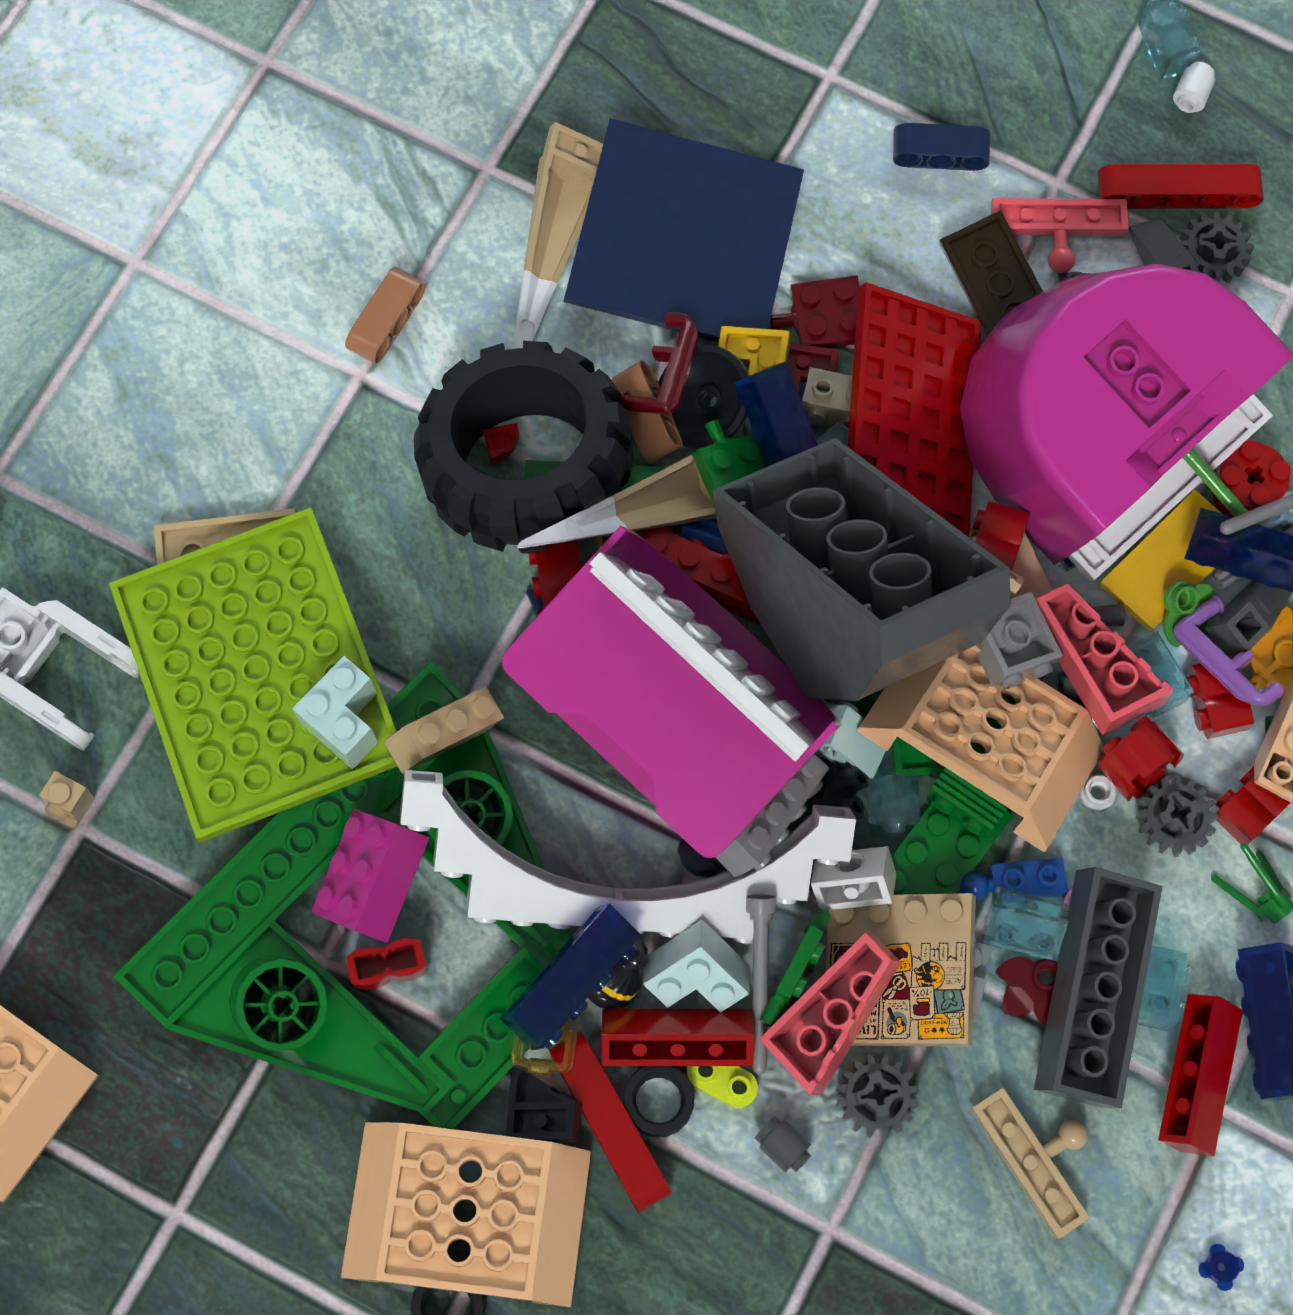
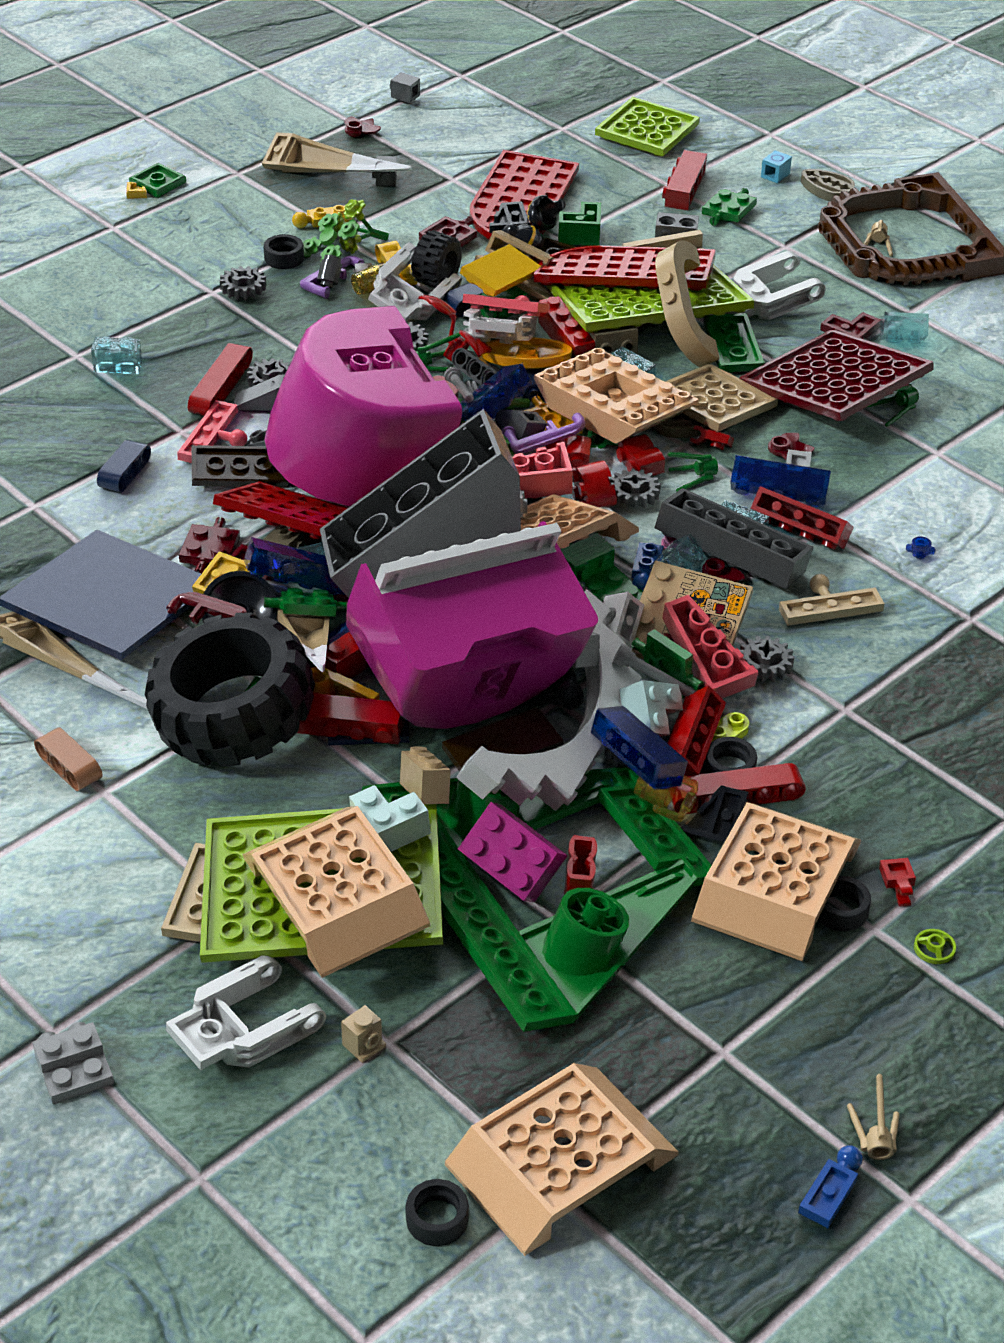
camera: 70 degrees left, 30 degrees down
(194, 733) = (346, 912): none -> light nougat slope
(594, 801) = (518, 734): none -> dark brown tile
(783, 1145) = (782, 709): dark grey brick -> none
(1194, 87) = (157, 356): white brick -> none

